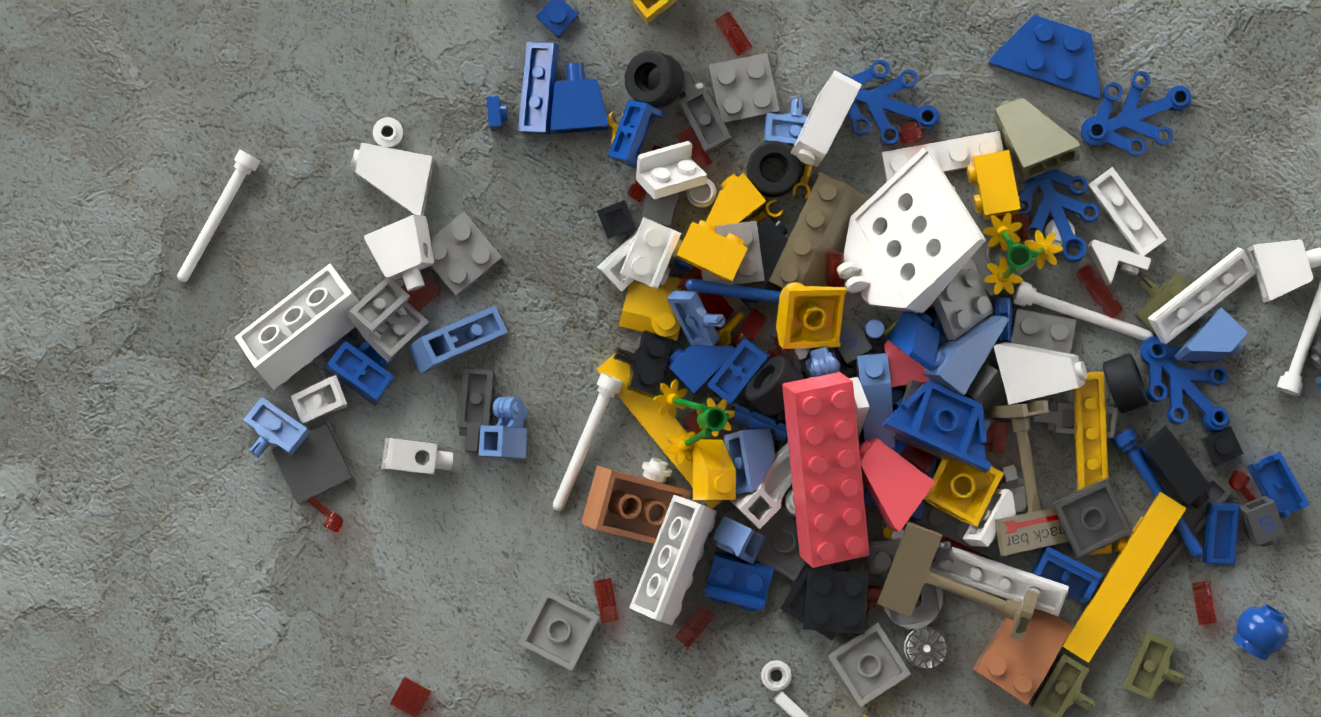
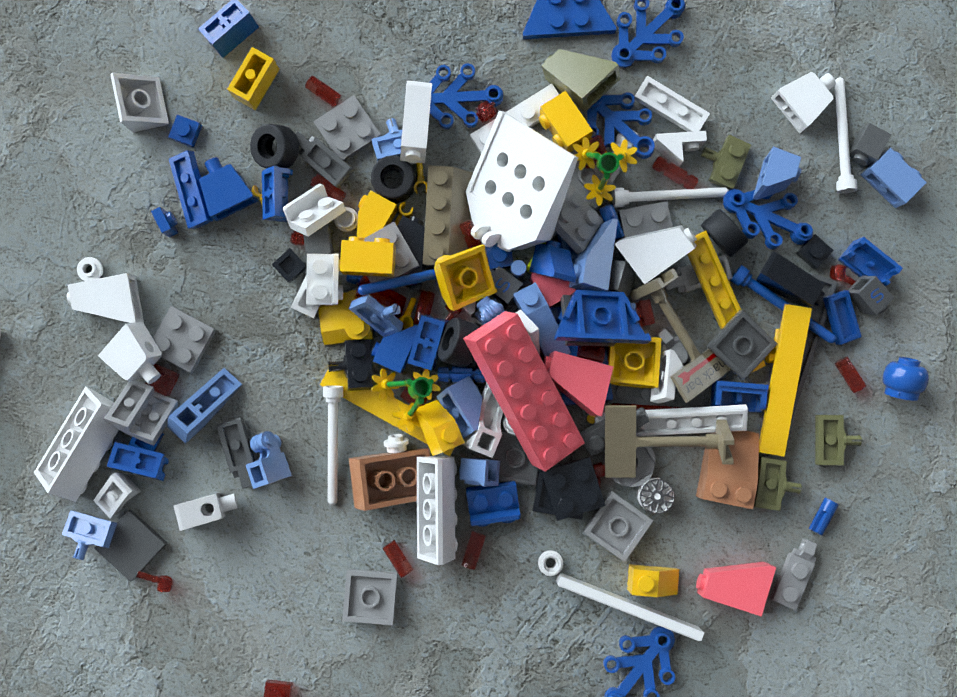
camera: 20 degrees left, 0 degrees up
(857, 307) = (498, 257): none -> blue plate
(1202, 295) = (754, 144): white tile -> none

